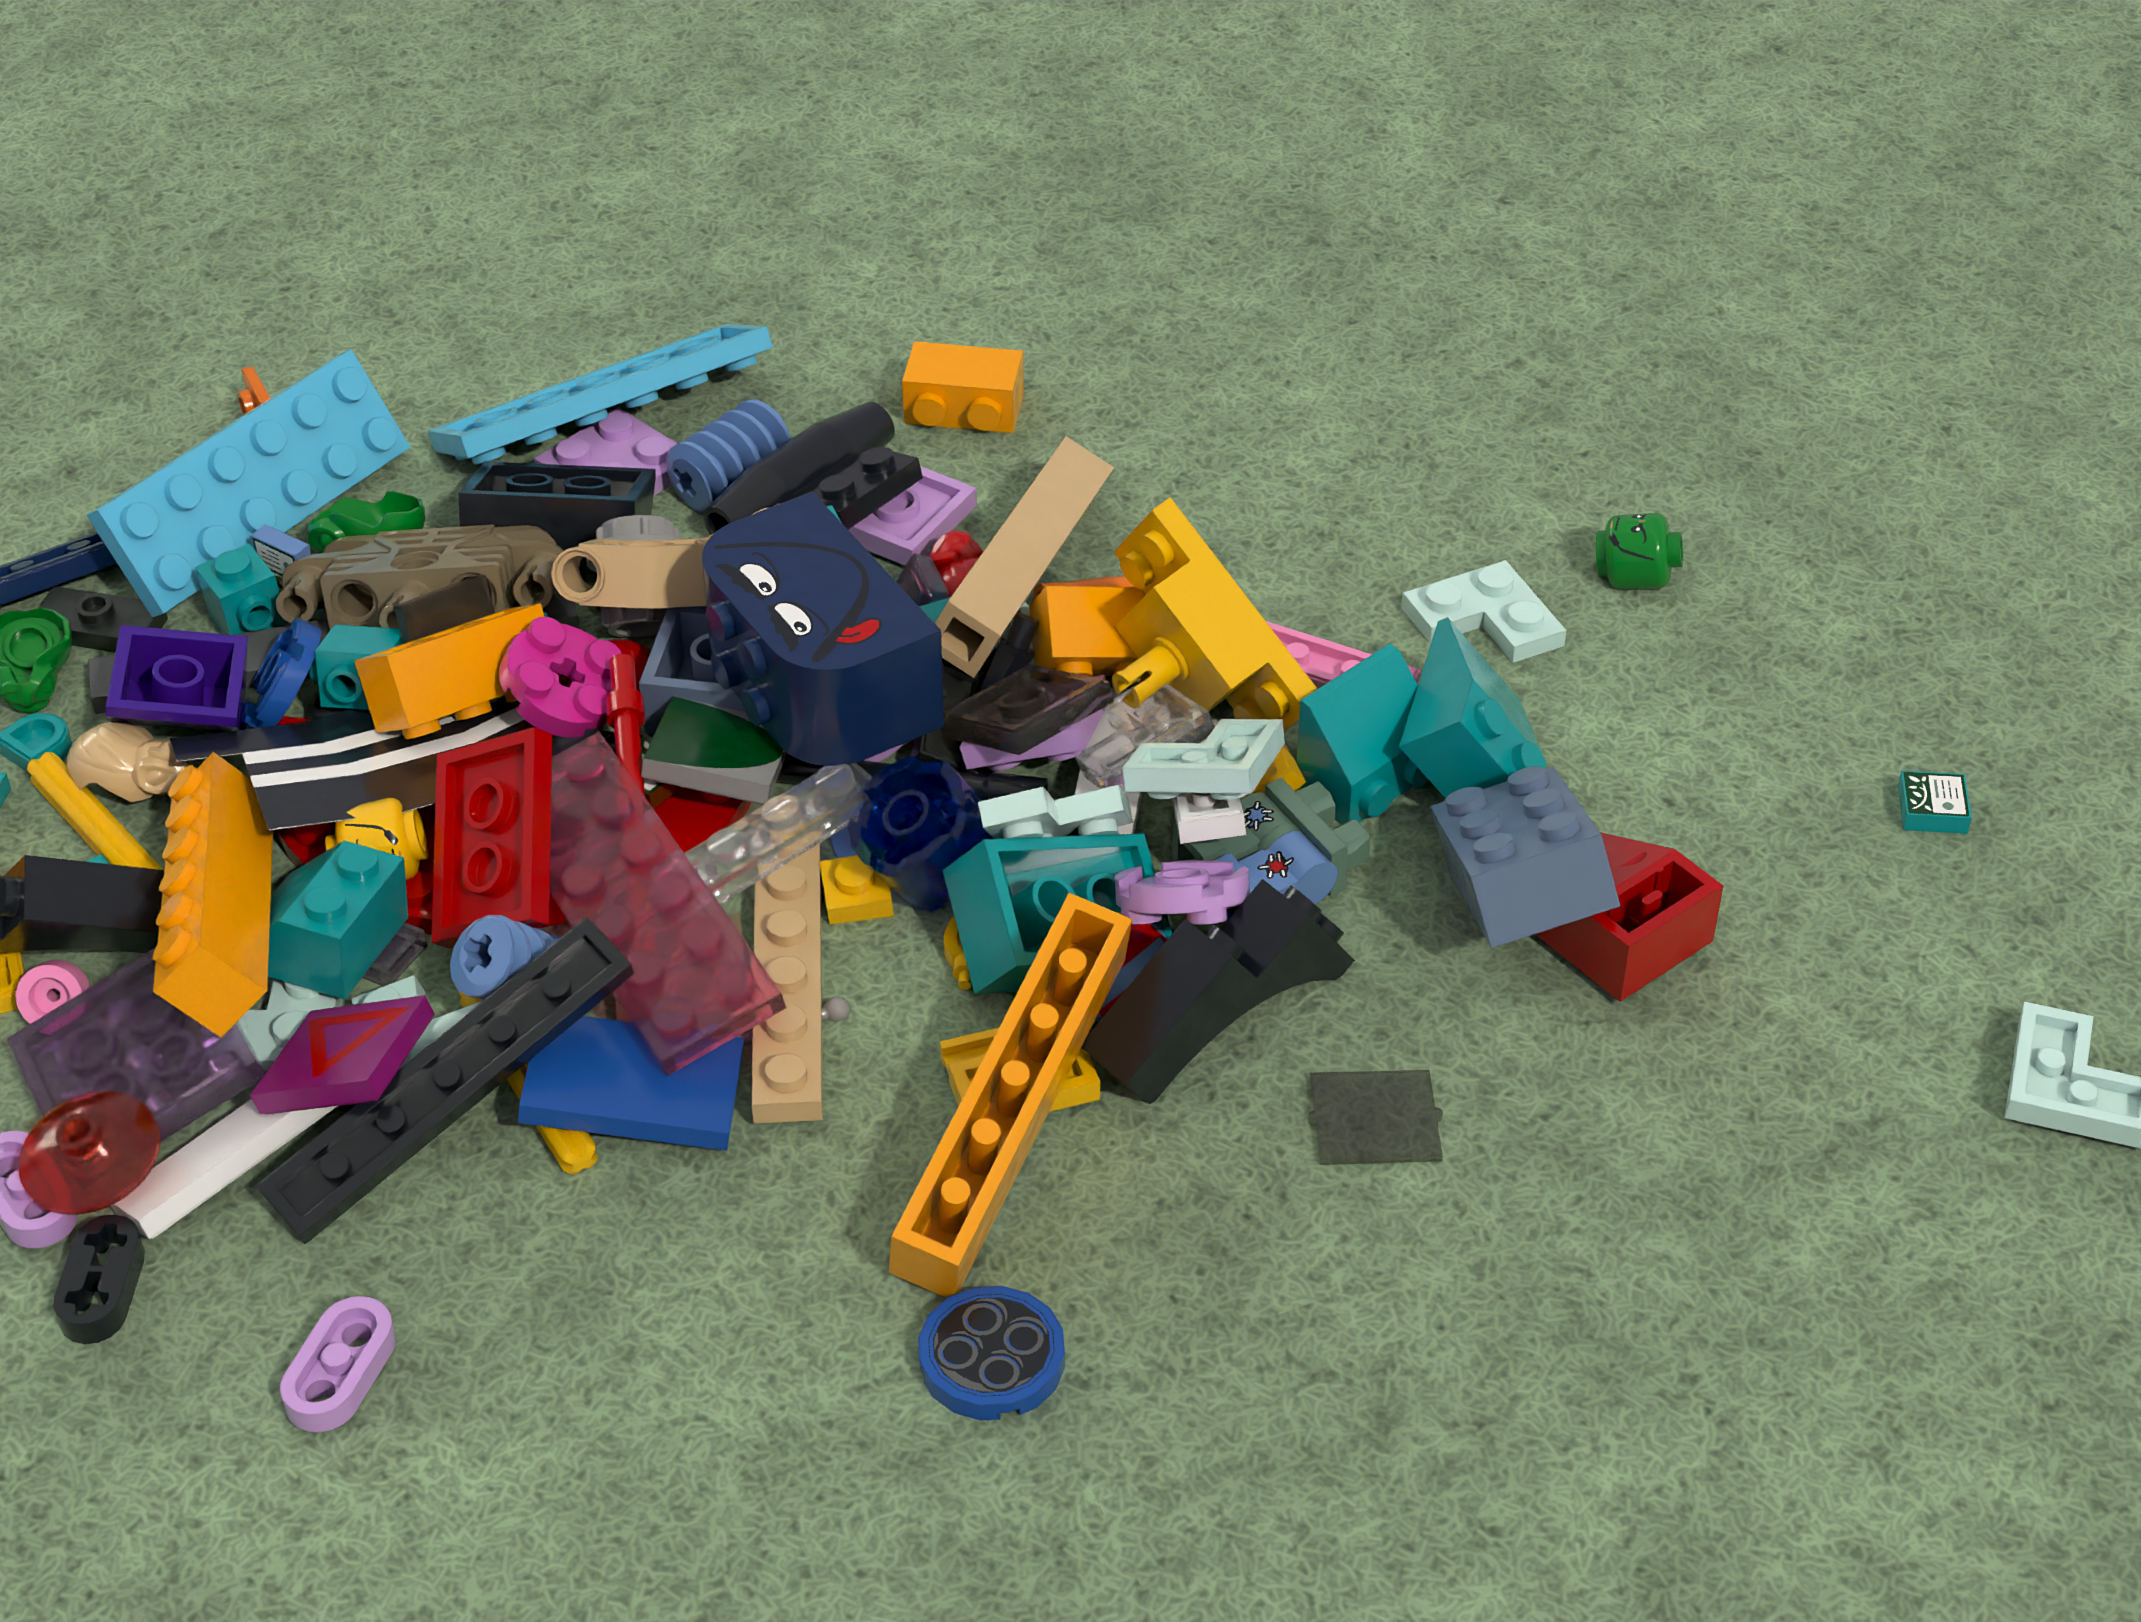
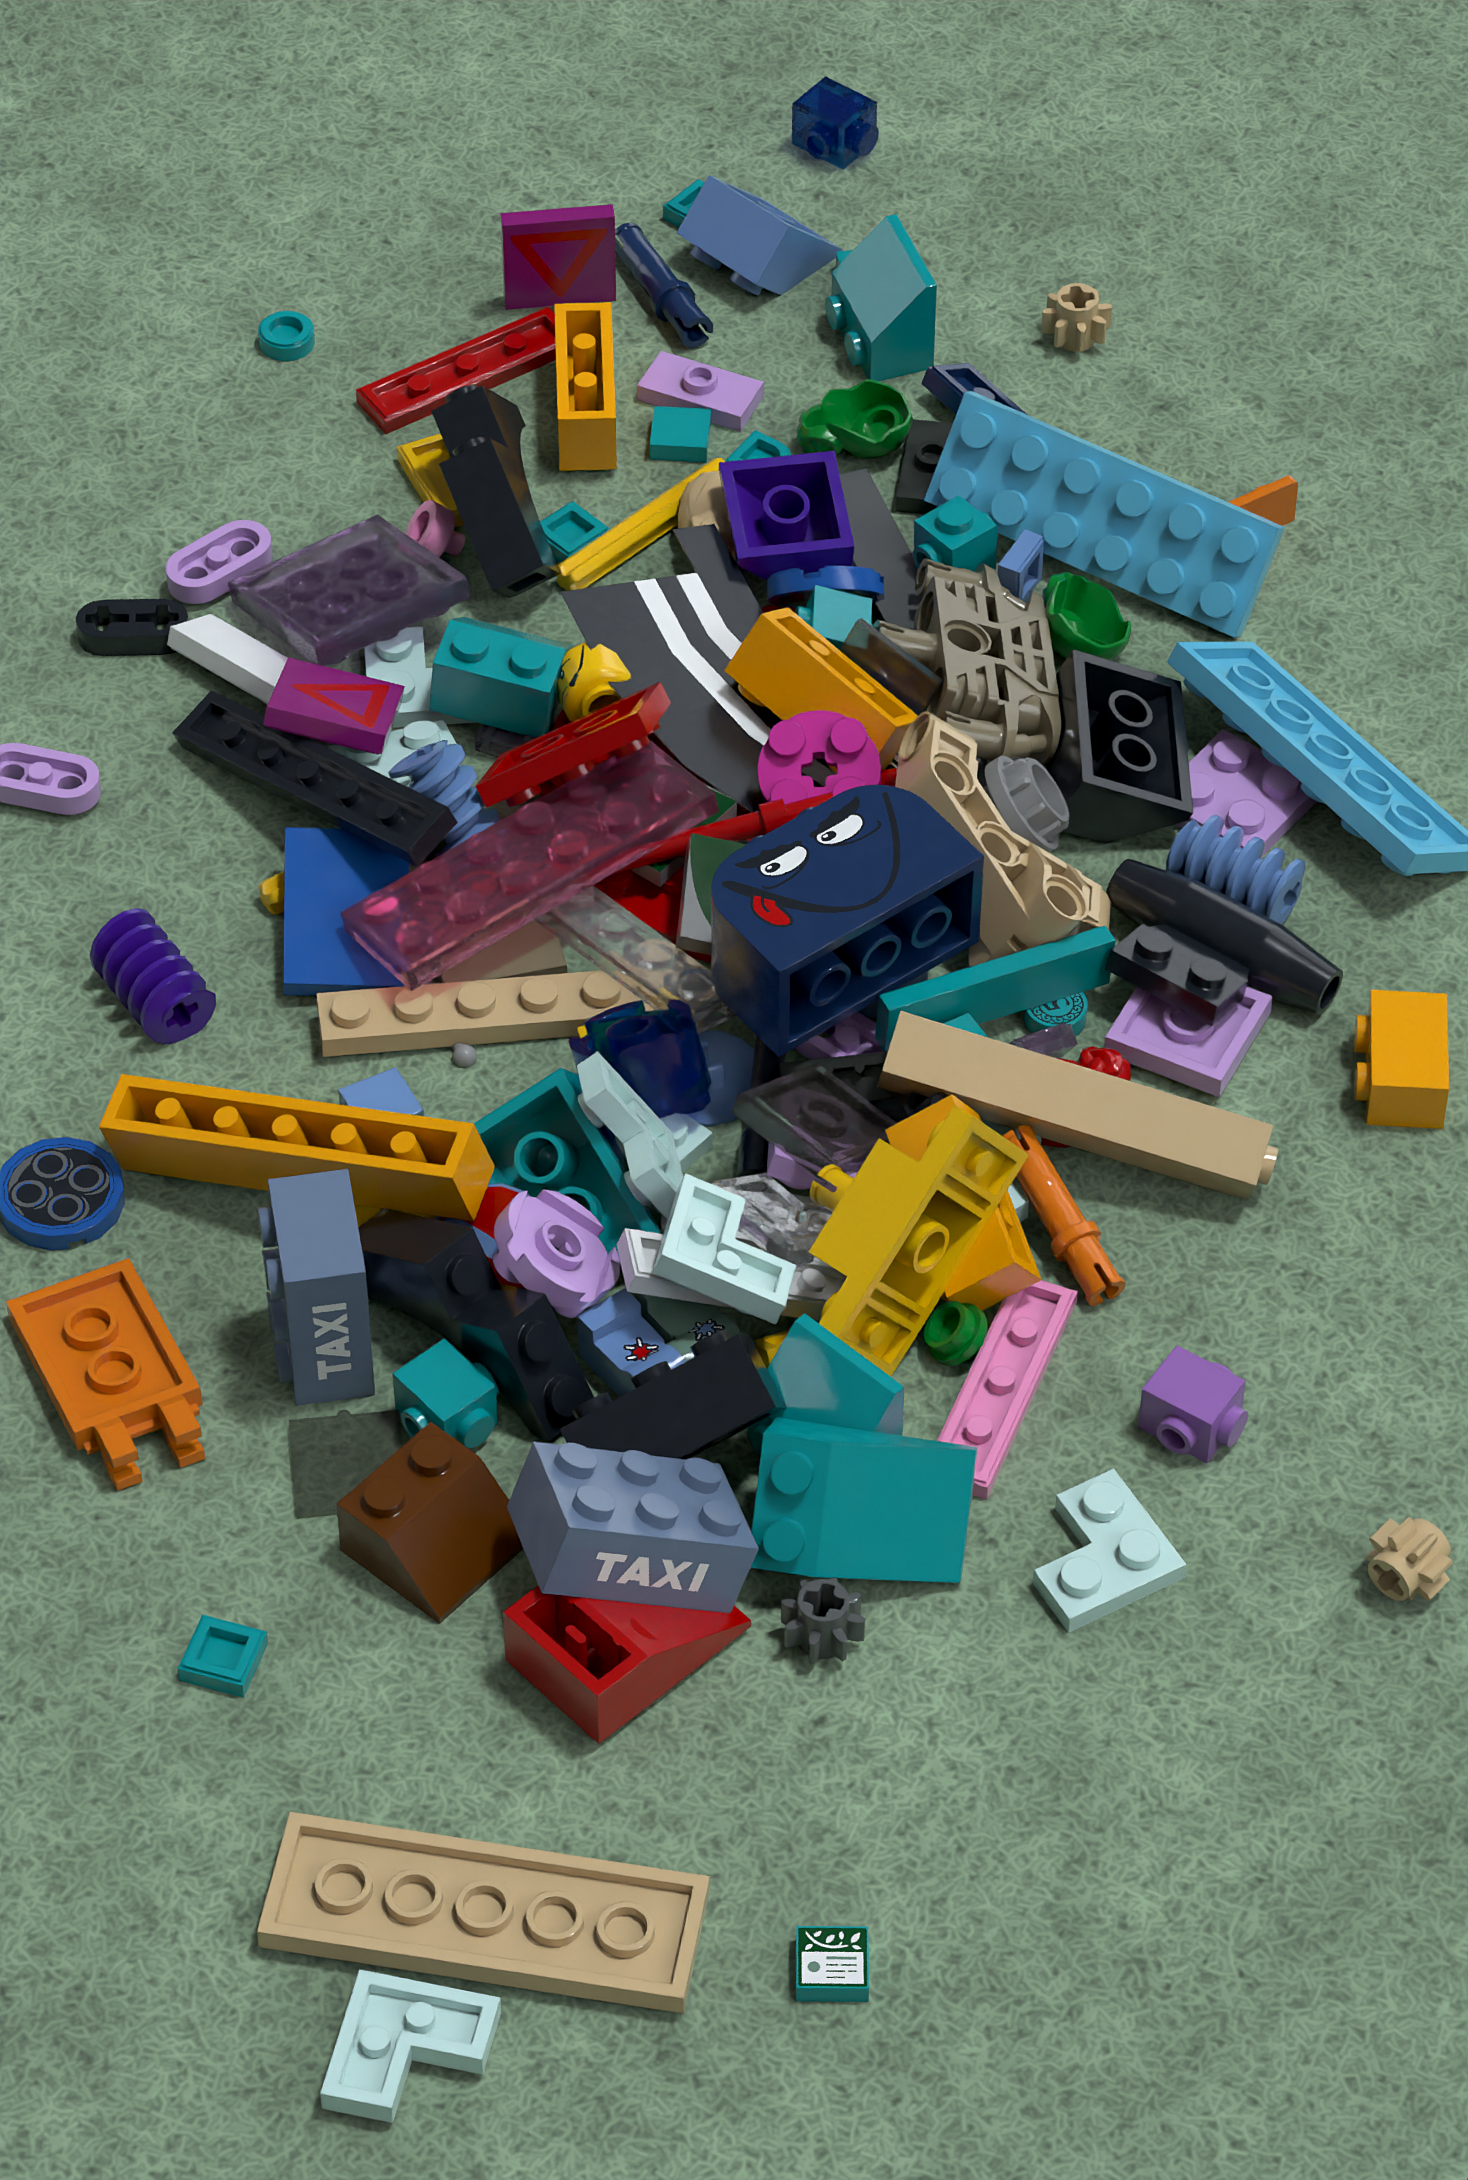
camera: 85 degrees right, 5 degrees up
(89, 1152) = (238, 581): clear red dish -> none
(214, 897) = (478, 576): light orange brick -> none
(695, 1246) = (151, 977): none -> dark purple piece
(903, 1072) = (382, 1092): none -> medium blue tile
(1224, 1063) = (317, 1287): none -> sand blue brick
(1253, 1300) = (110, 1367): none -> orange tile
(1317, 1020) = (448, 1392): none -> teal brick
(1339, 538) = (1193, 1405): none -> medium lavender brick
(1386, 825) = (685, 1407): none -> black brick
(1466, 1043) = (429, 1523): none -> reddish brown slope
(1507, 434) = (1409, 1559): none -> tan gear
(1585, 769) = (823, 1619): none -> dark grey gear
(1626, 1216) = (223, 1656): none -> teal tile
(1638, 551) = (1211, 1680): green head -> none
(1920, 1026) = (485, 1912): none -> tan plate

